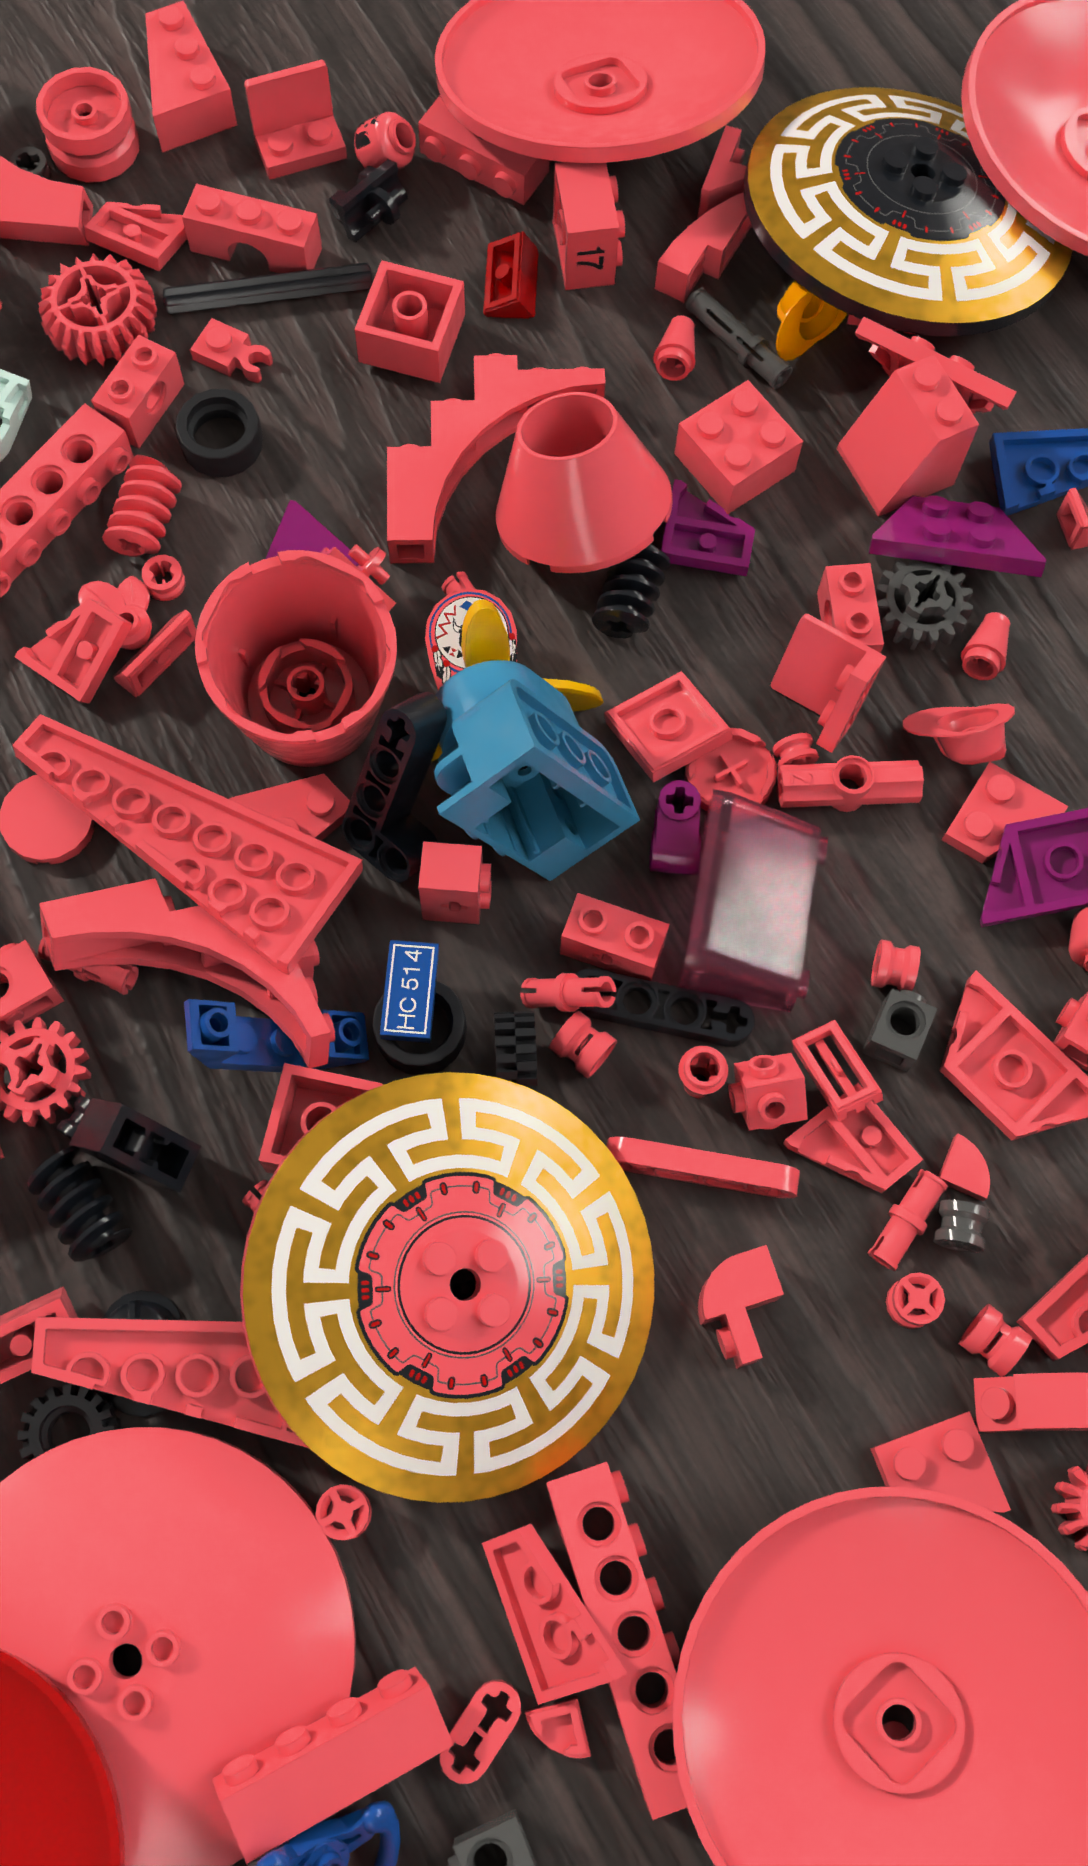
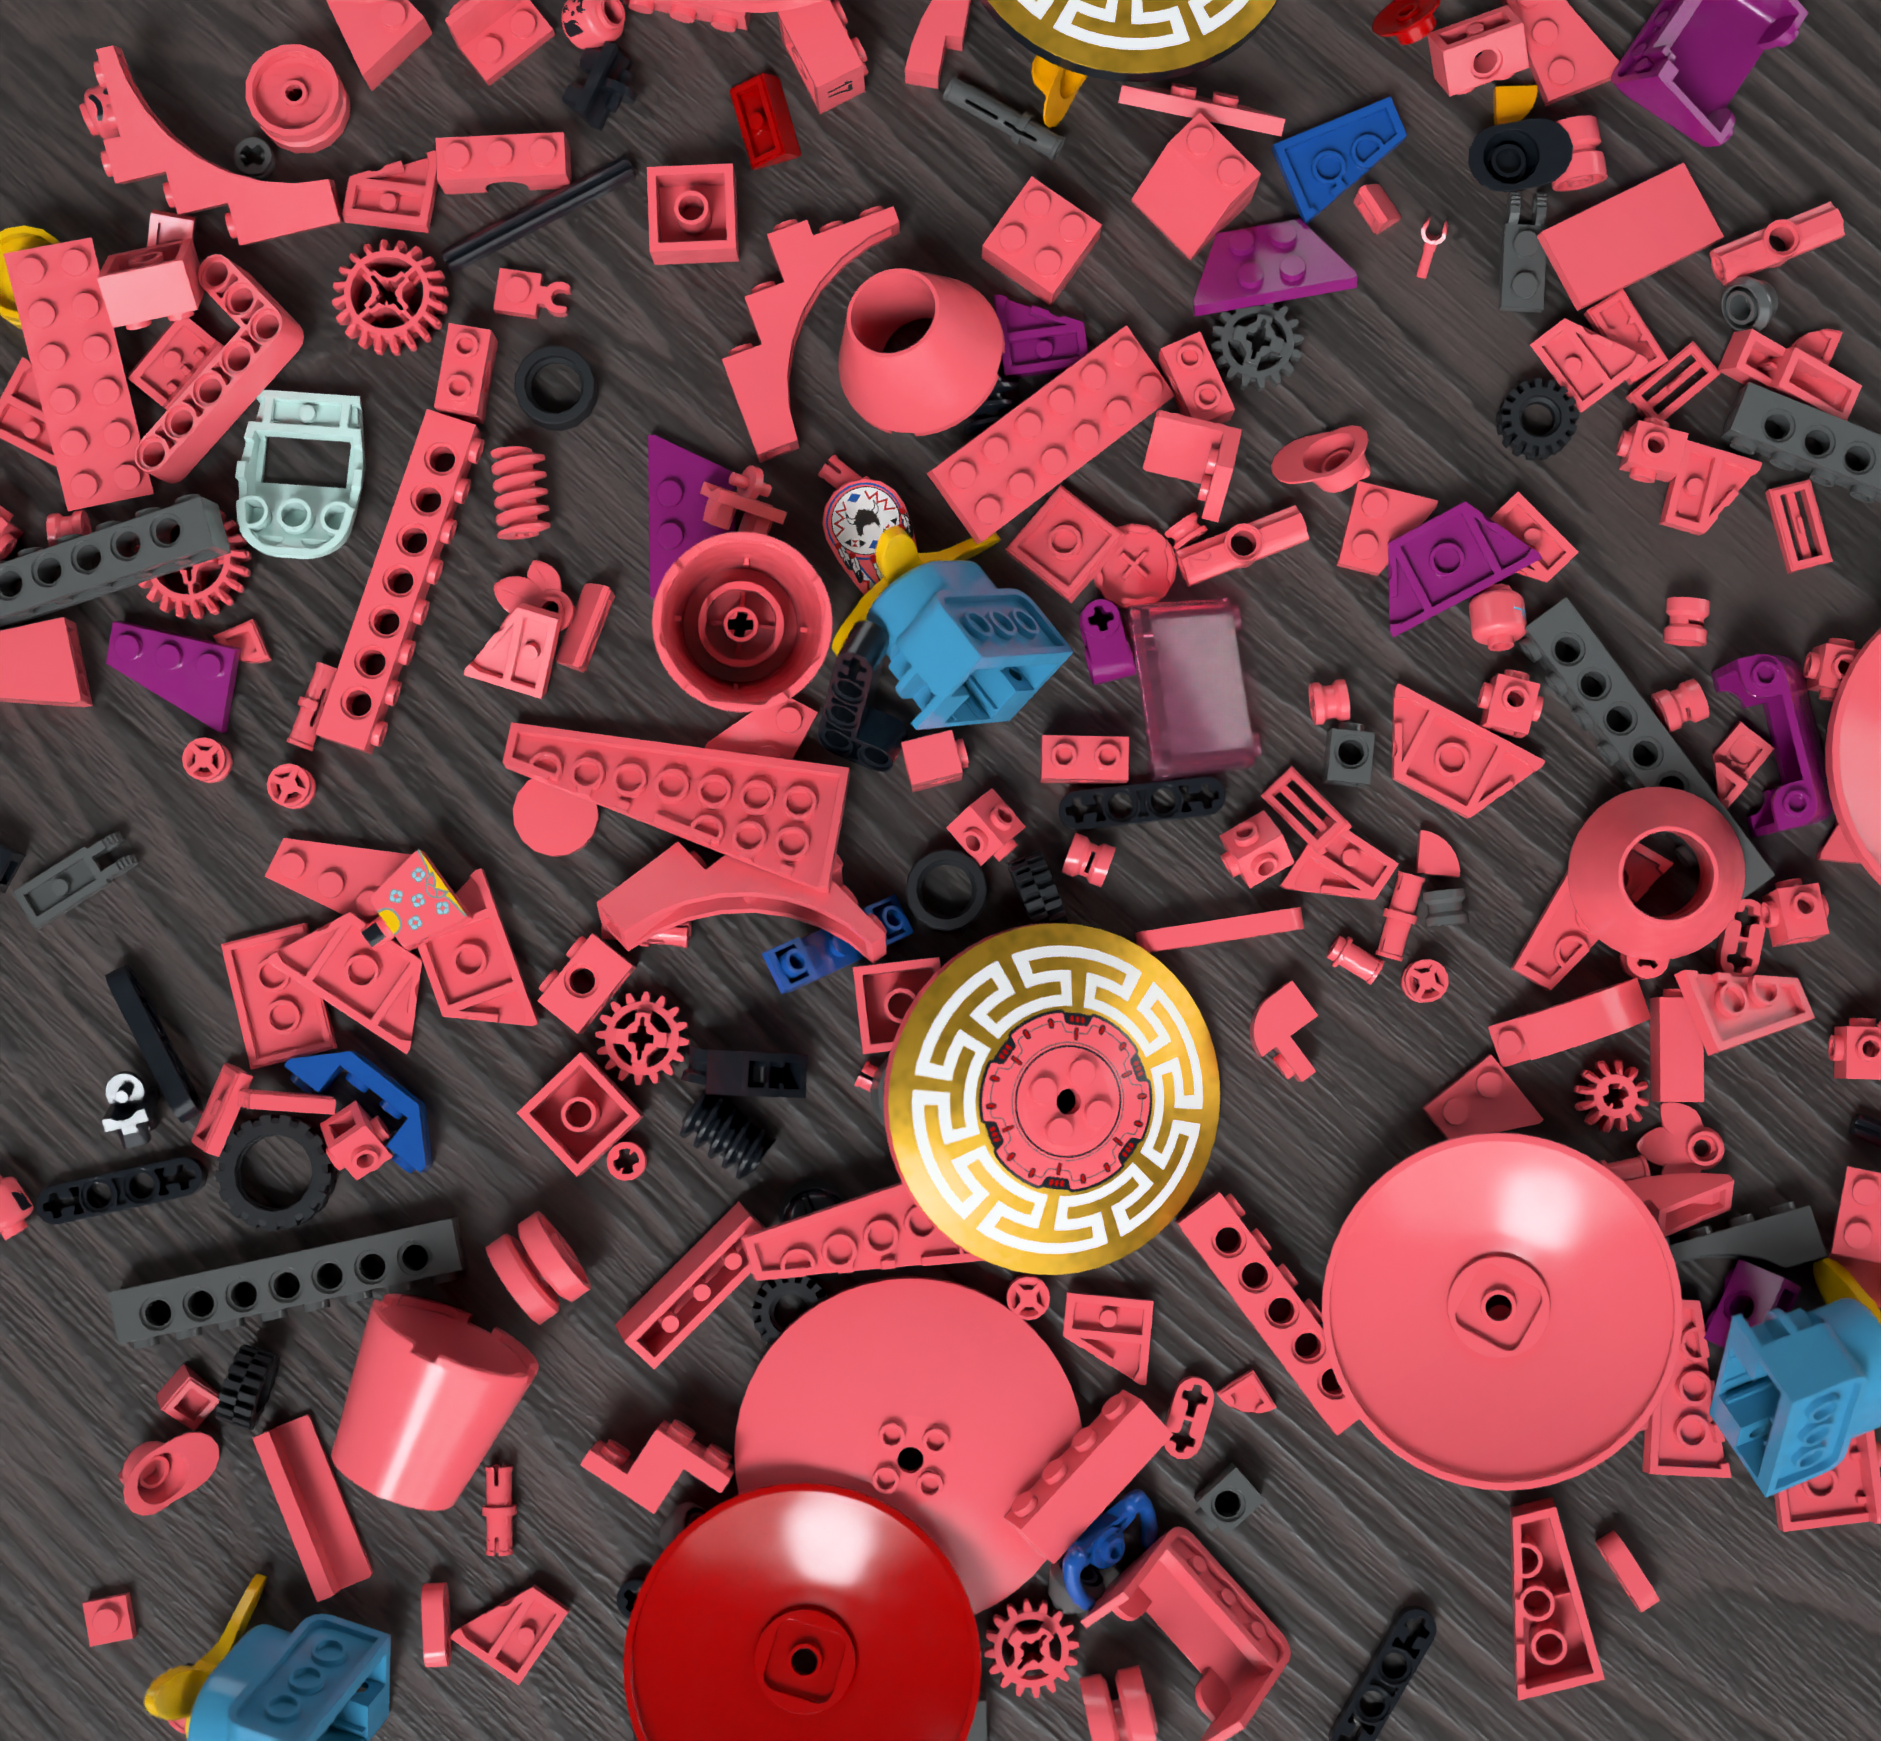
camera: 15 degrees left, 15 degrees up
(162, 564) = (552, 558): coral bush -> none
(409, 991) = (931, 868): blue tile -> none
(426, 1588) = (1111, 1330): none -> coral wing
(485, 973) = (987, 828): none -> coral brick
(549, 1622) = (1211, 1321): coral wing -> none
(568, 992) = (1062, 822): coral pin -> none
(676, 350) = (950, 150): coral cone -> none
(683, 612) = (1051, 434): none -> coral plate
(706, 1062) = (1207, 848): coral cone -> none
(843, 1250) = (1354, 959): none -> coral pin
(987, 648) = (1326, 369): coral cone -> none
(1000, 1348) = (1496, 991): coral wheel -> none

